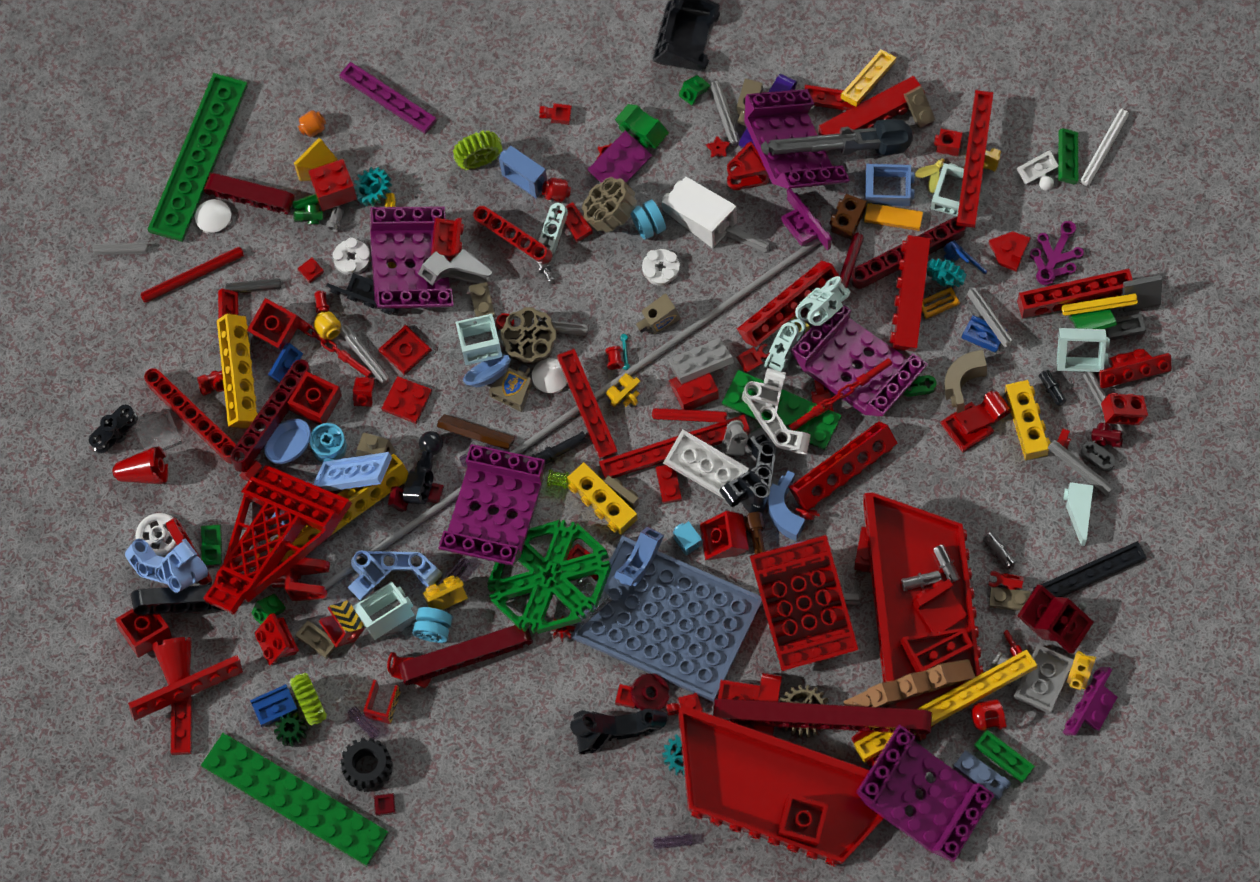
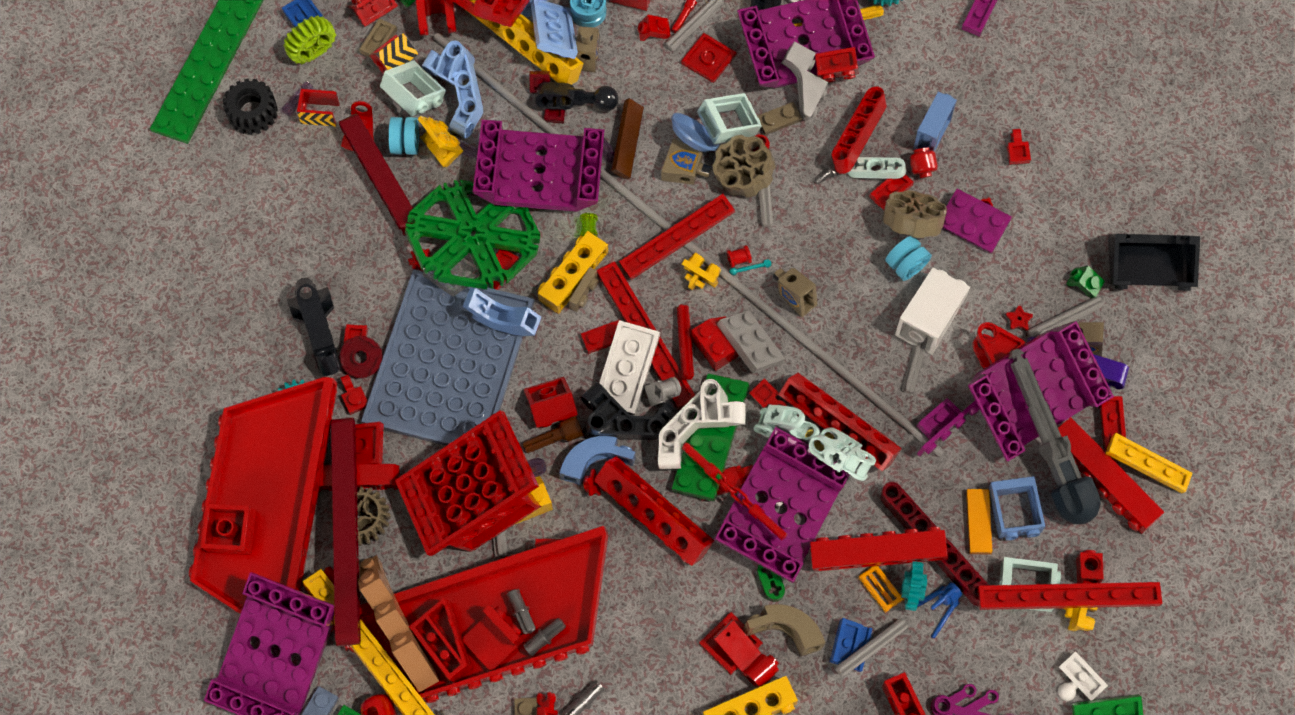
camera: 75 degrees right, 0 degrees up
(287, 736) = (276, 33): dark green gear -> none
(384, 804) = (215, 134): dark red tile -> none
(406, 399) = (653, 70): red plate -> none
(477, 150) = (949, 75): lime gear -> none
(548, 376) = (703, 193): white dish -> none
(551, 453) = (616, 215): black pin -> none
(641, 126) = (1023, 234): green brick -> none
(658, 257) = (866, 276): white plate -> none
(672, 841) = (203, 408): clear purple axle -> none
(687, 538) = (542, 363): medium azure brick -> none
(851, 217) = (964, 475): reddish brown brick -> none
(851, 258) = (907, 480): dark red axle -> none
(919, 107) = (1125, 526): dark tan plate -> none
(933, 173) = (1047, 551): light yellow piece -> none
(1009, 249) = (968, 660): red plate -> none

